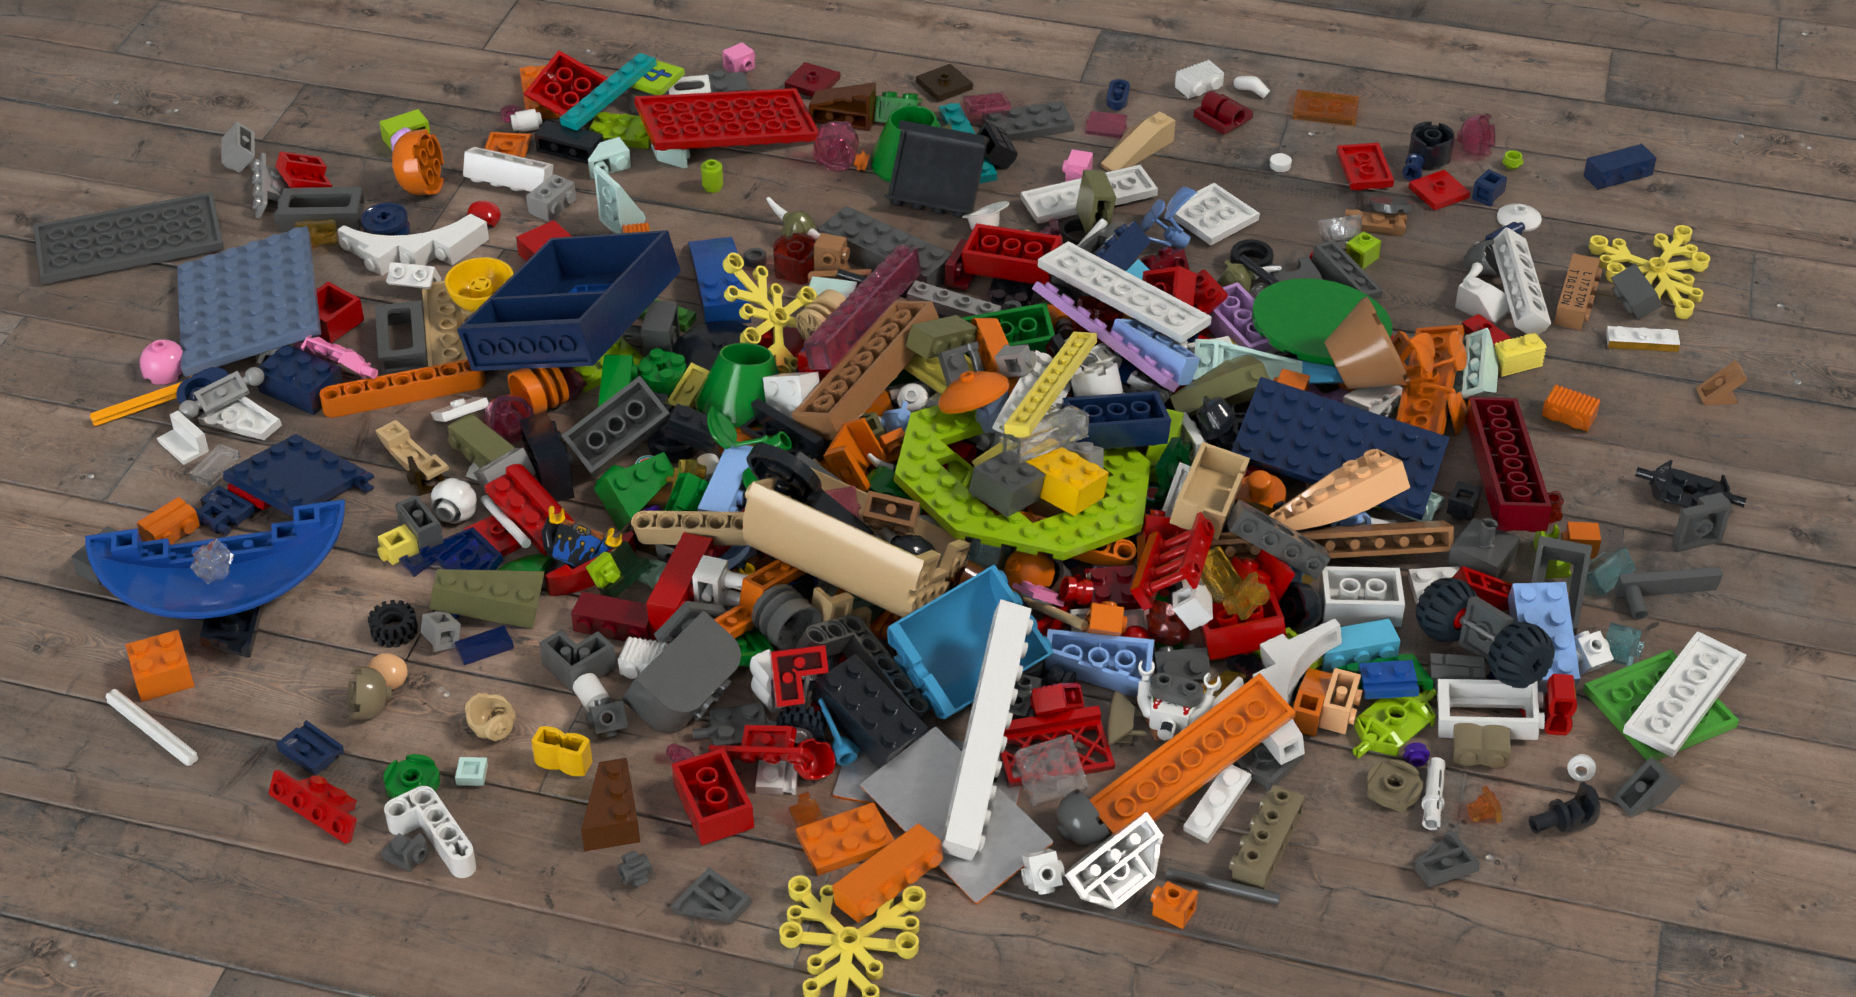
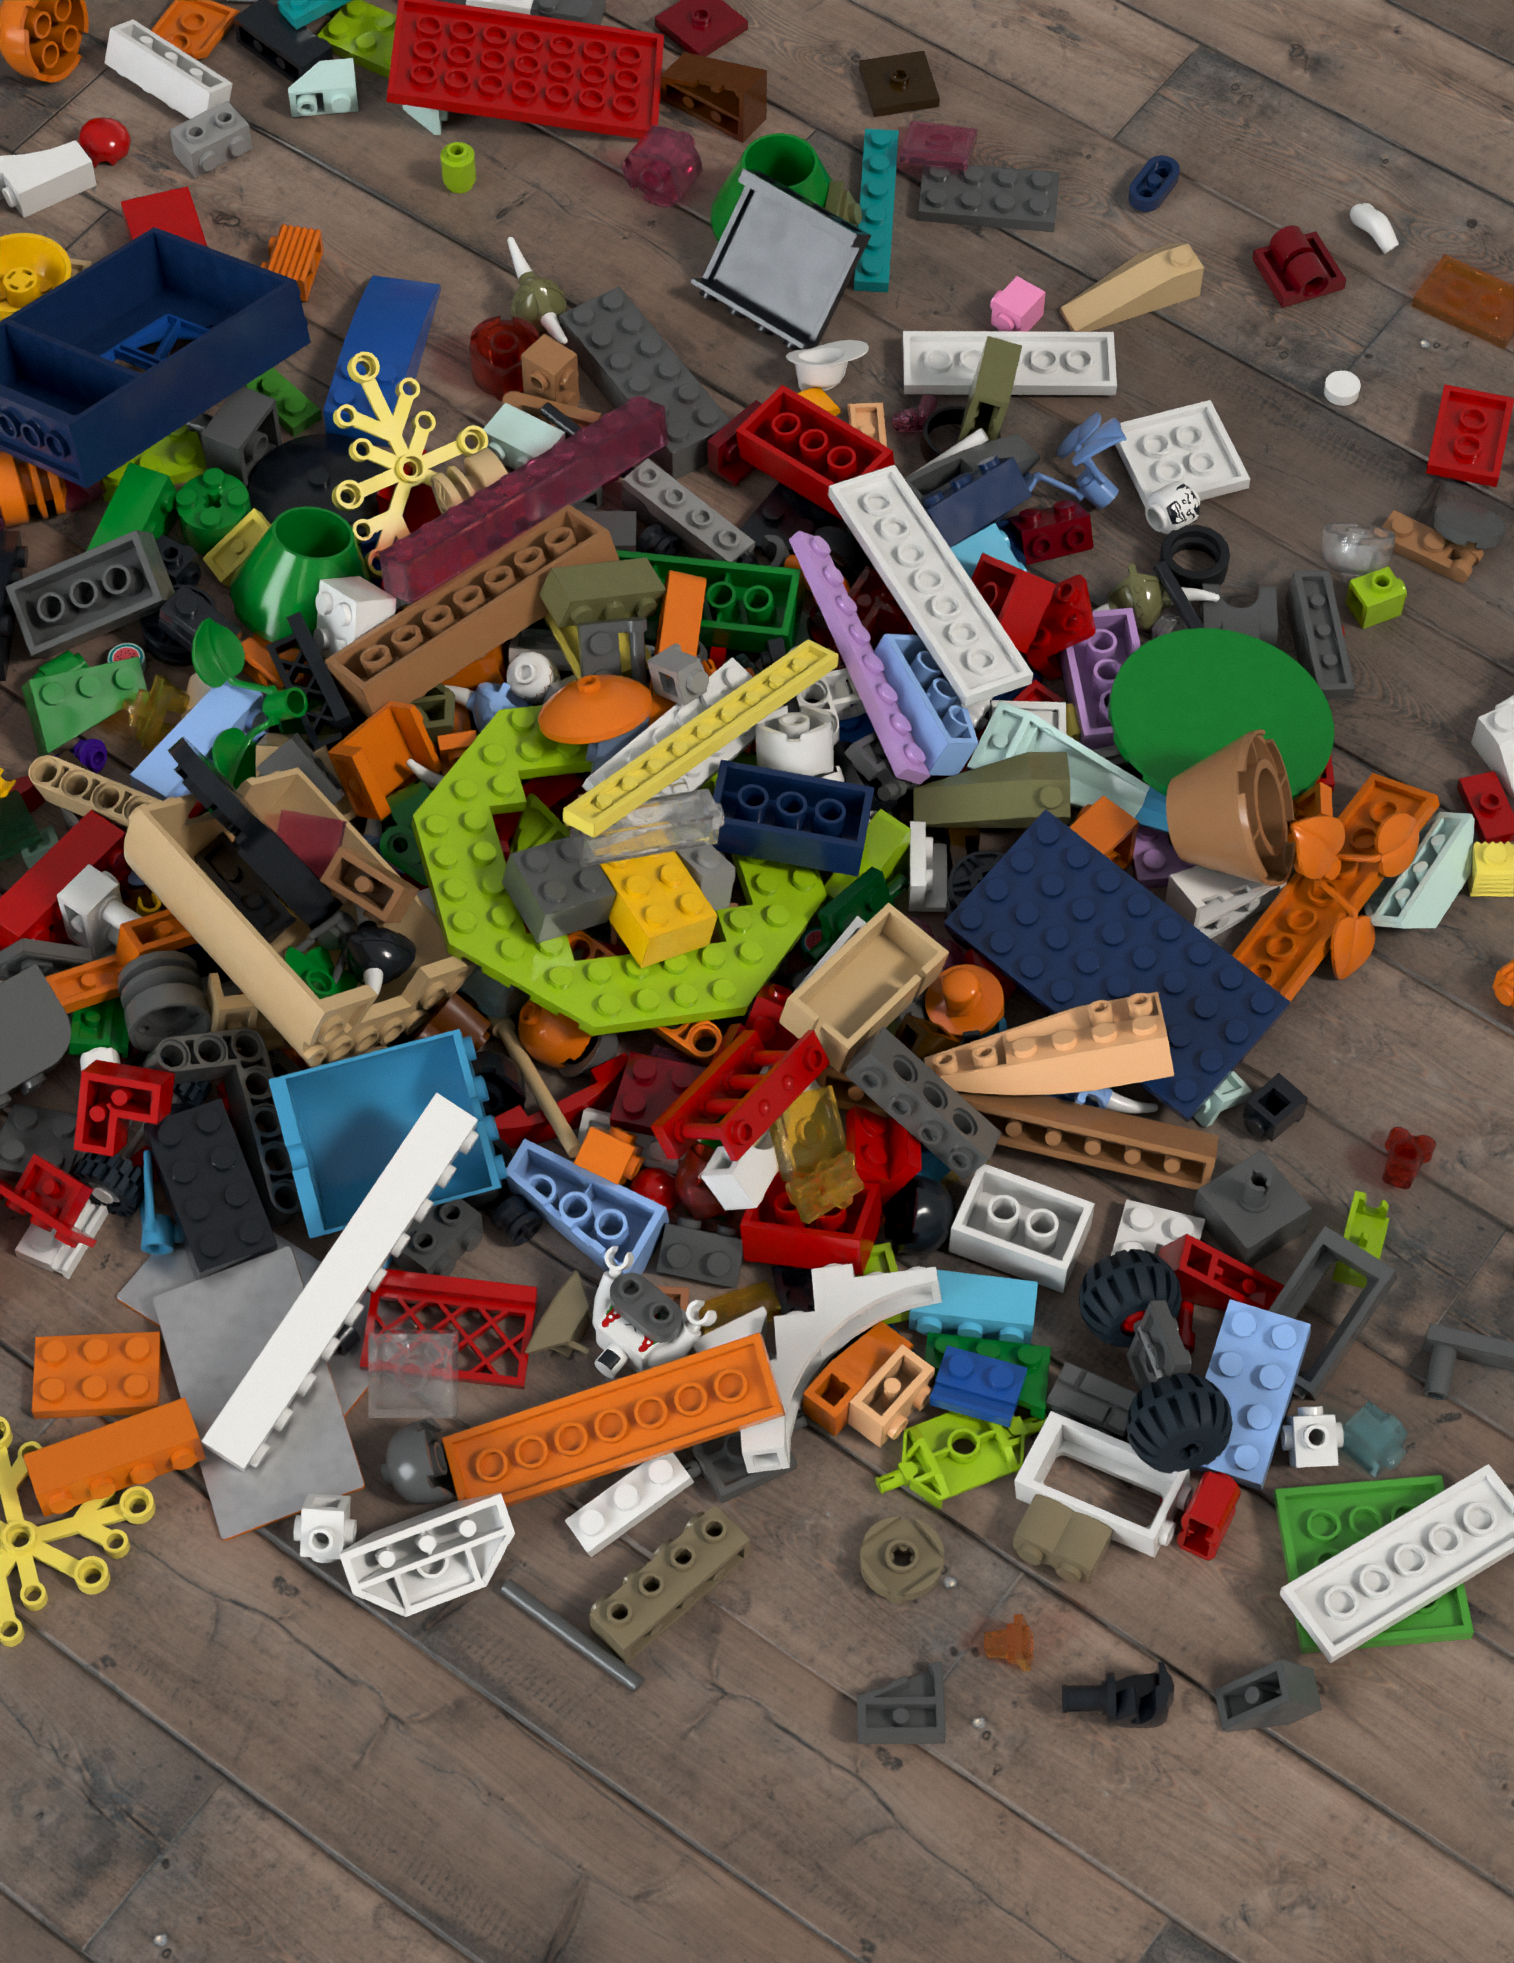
camera: 20 degrees right, 15 degrees up
(614, 204) = (289, 185): light aqua slope -> none
(686, 493) = (131, 744): green brick -> none
(755, 257) = (455, 333): dark grey tile -> none
(805, 811) = (64, 1315): clear orange brick -> none
(823, 763) = (116, 1237): red hair -> none
(861, 161) = (695, 201): orange plate -> none
(890, 101) = (800, 111): green bracket -> none
(999, 146) = (910, 232): black brick -> none
(1038, 593) = (533, 1060): bright pink piece -> none
(1056, 698) = (483, 1257): red brick -> none
(1075, 590) = (597, 1086): red wheel -> none
(1106, 124) = (1109, 234): clear pink piece -> none
(1174, 904) = (488, 1654): orange brick -> none
(1199, 79) = (1296, 191): white brick -> none
(1215, 417) = (957, 850): black piece -> none
(1227, 234) = (1172, 507): none -> white head
(1416, 754) = (961, 1520): dark purple plate -> none
(1433, 800) = (941, 1607): white pin -> none
(1507, 464) = (1363, 1072): dark red brick -> none
(1581, 760) = (1191, 1626): white plate -> none
(1583, 533) = (1417, 1235): orange brick -> none
(1607, 567) = (1430, 1297): clear light blue panel -> none

